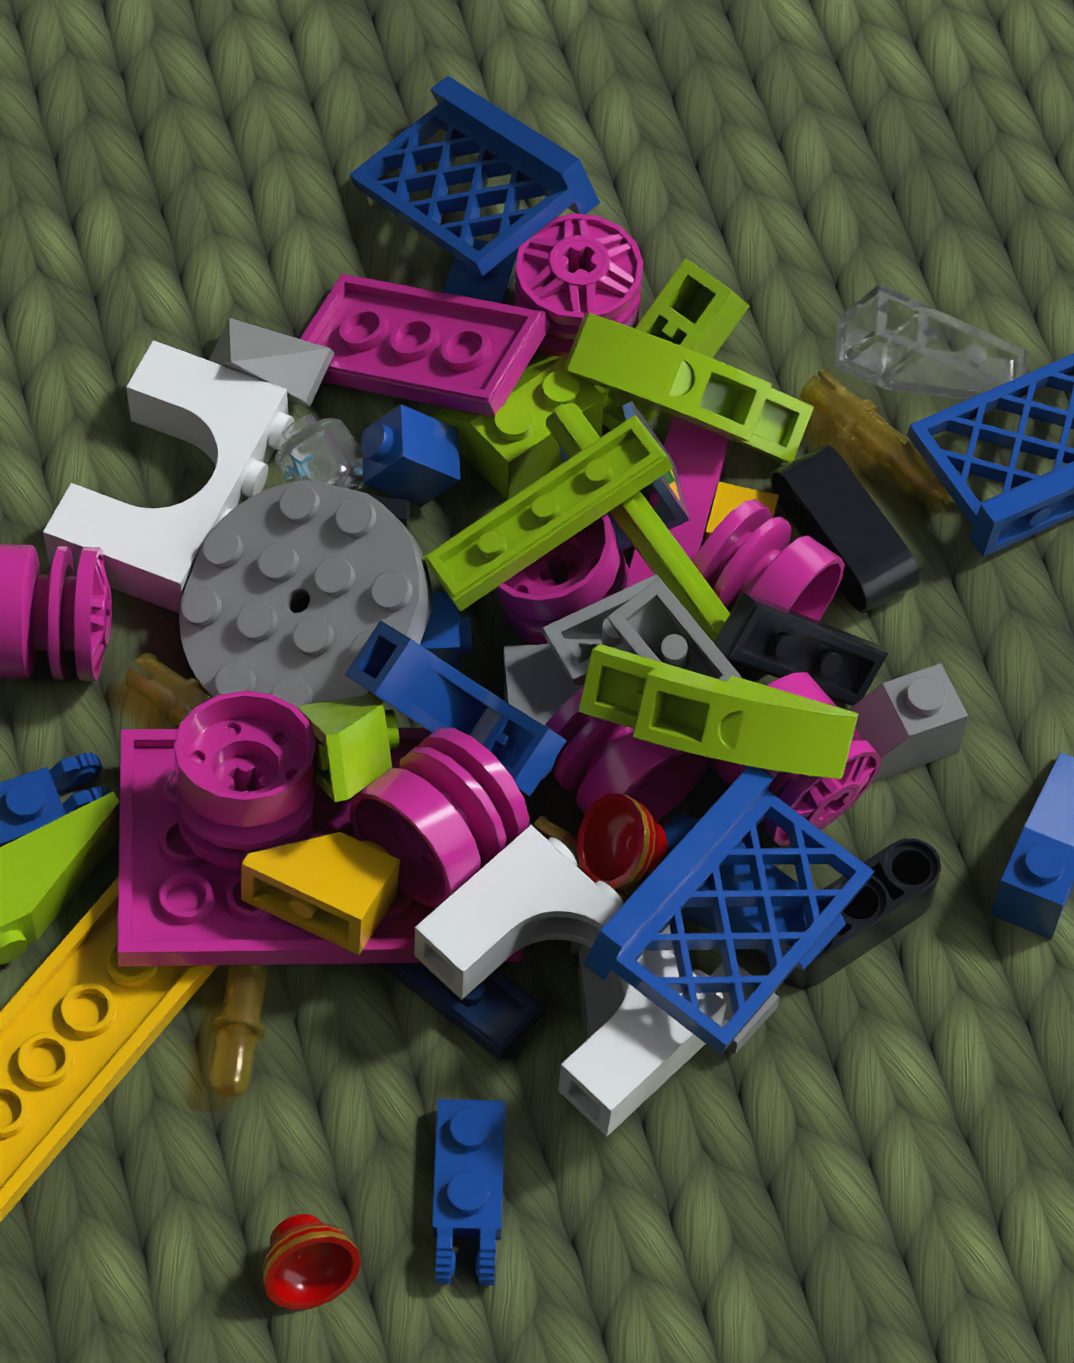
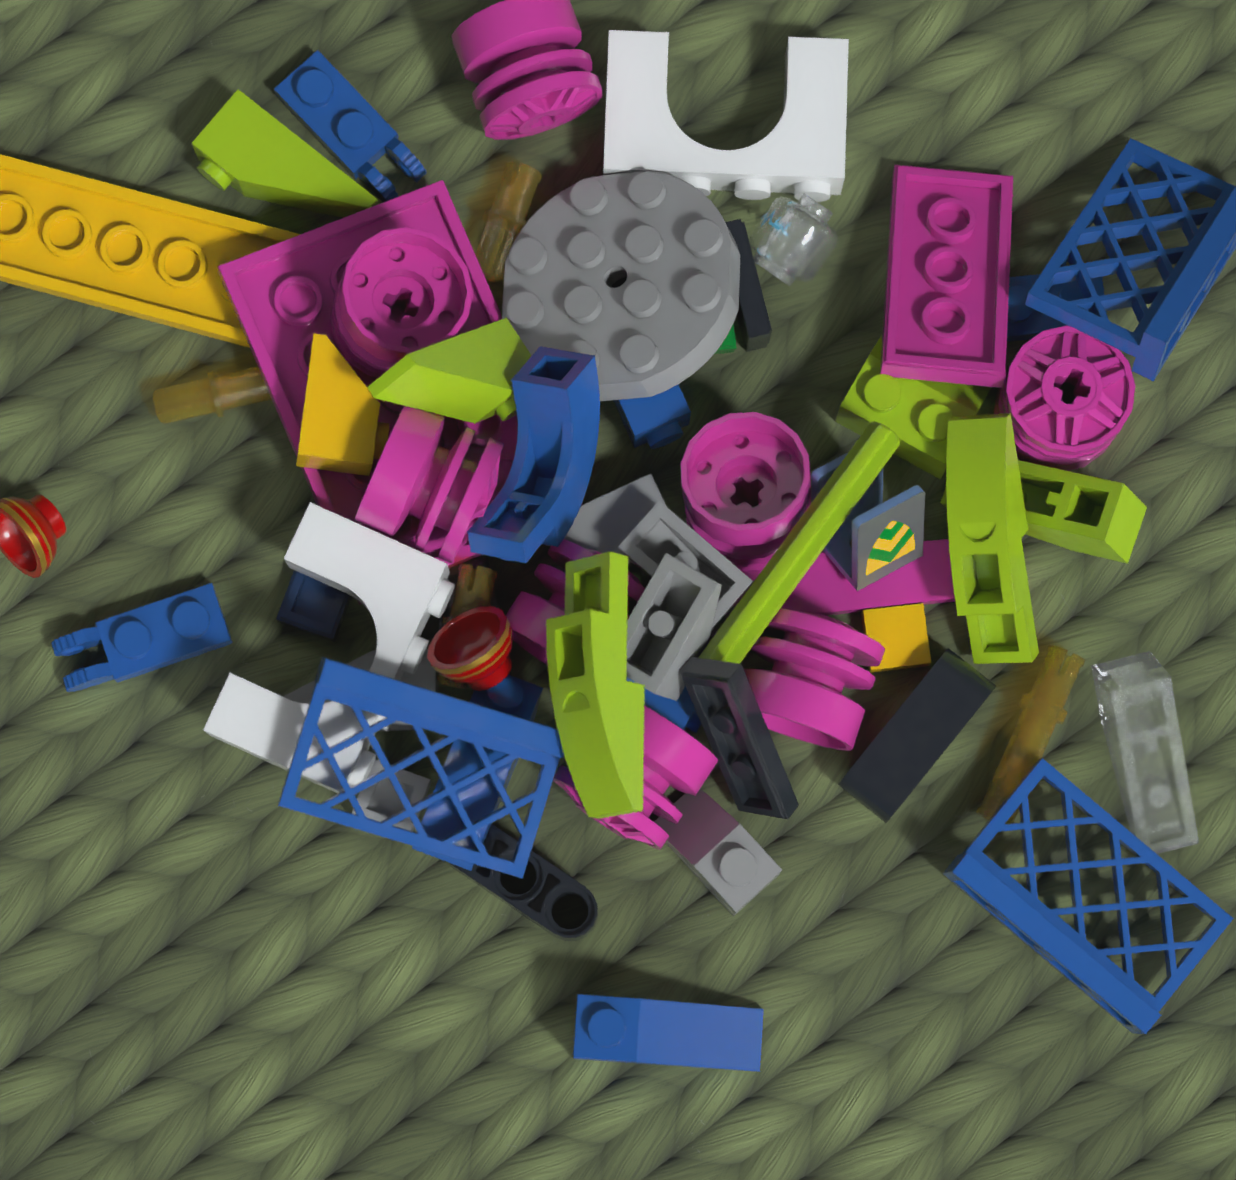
camera: 70 degrees right, 20 degrees up
(274, 358) = (880, 149): light grey slope -> none
(410, 455) = (825, 315): blue brick -> none
(548, 512) = (770, 461): lime tile -> none

